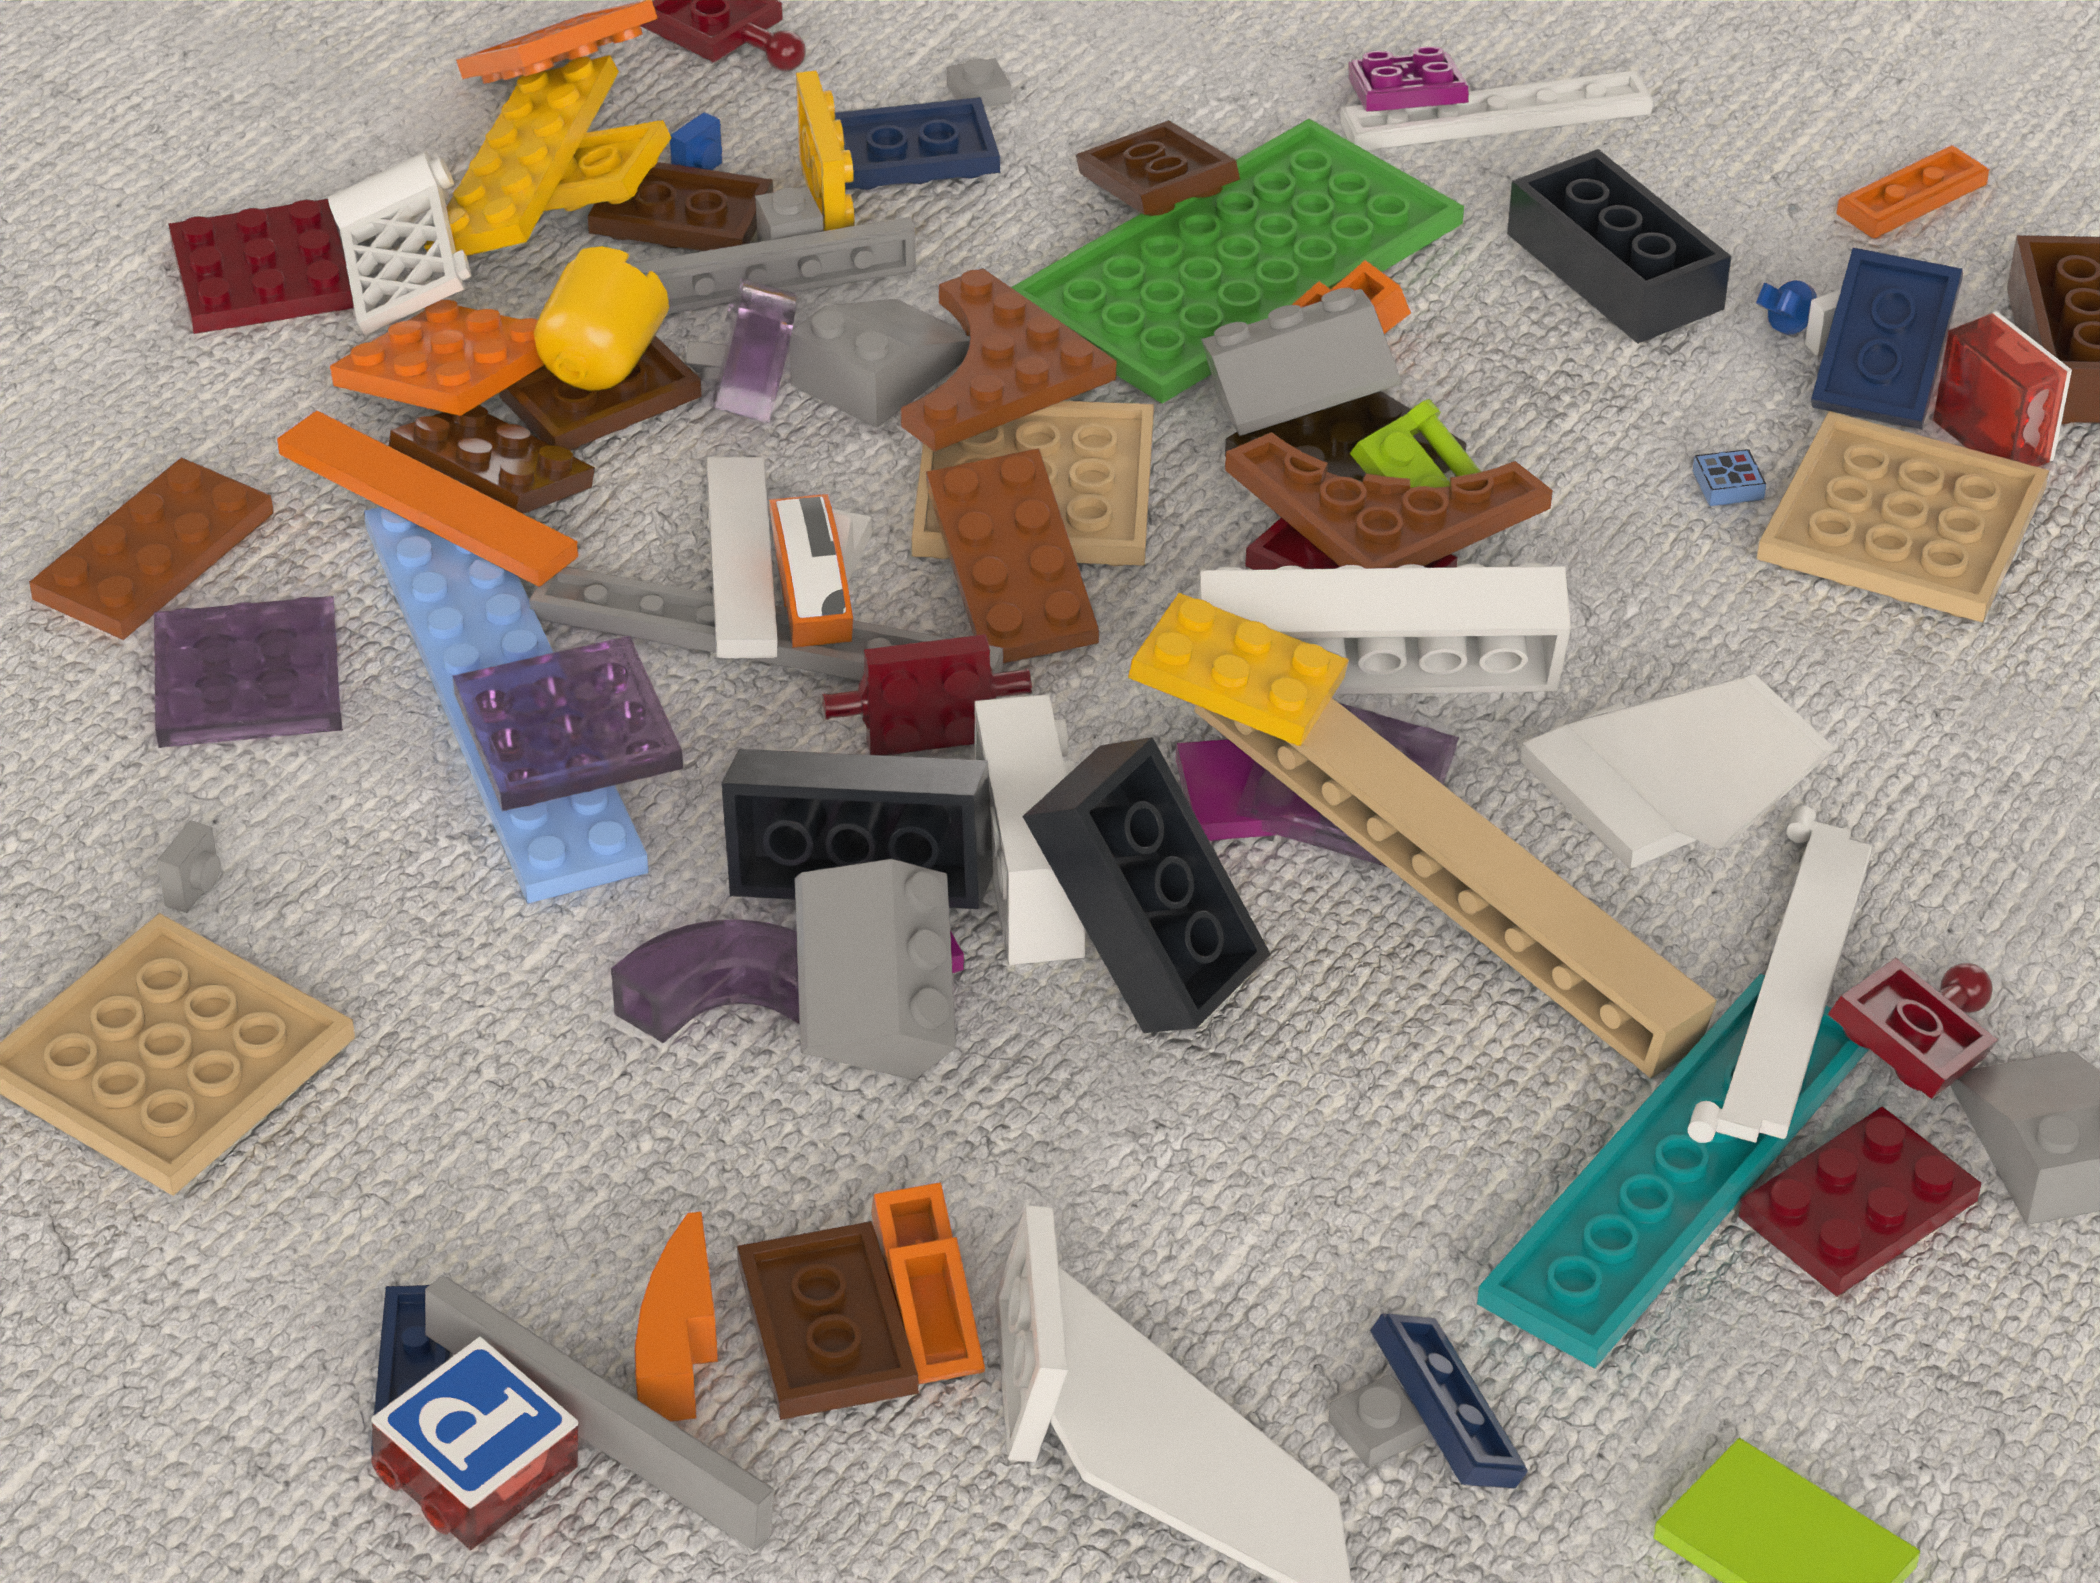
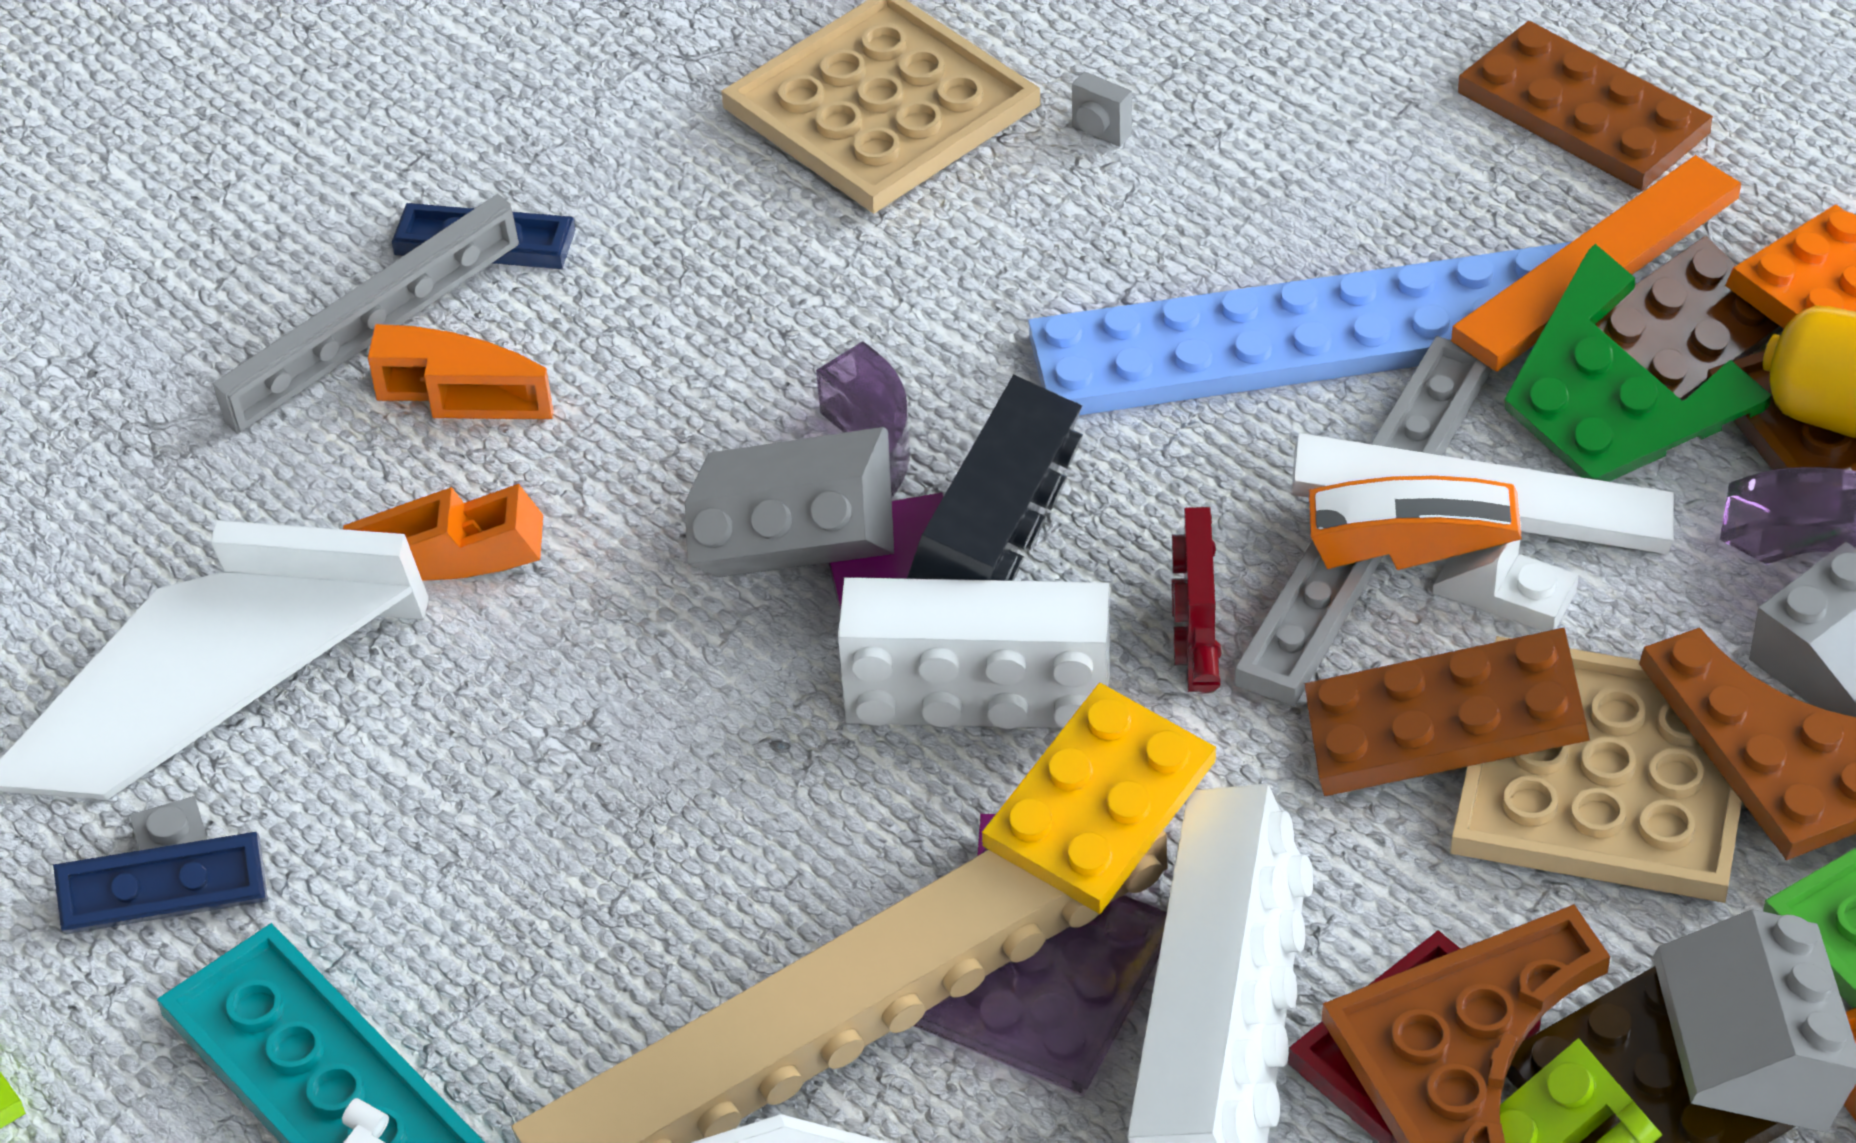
camera: 105 degrees right, 5 degrees up
(246, 671) = (1387, 162): clear purple plate -> none
(474, 1443) = (358, 231): piece -> none
(567, 723) = (1214, 334): clear purple plate -> none
(603, 497) = (1600, 403): none -> green wing
(827, 1320) = (408, 459): reddish brown plate -> none
(1147, 885) = (795, 680): black brick -> none

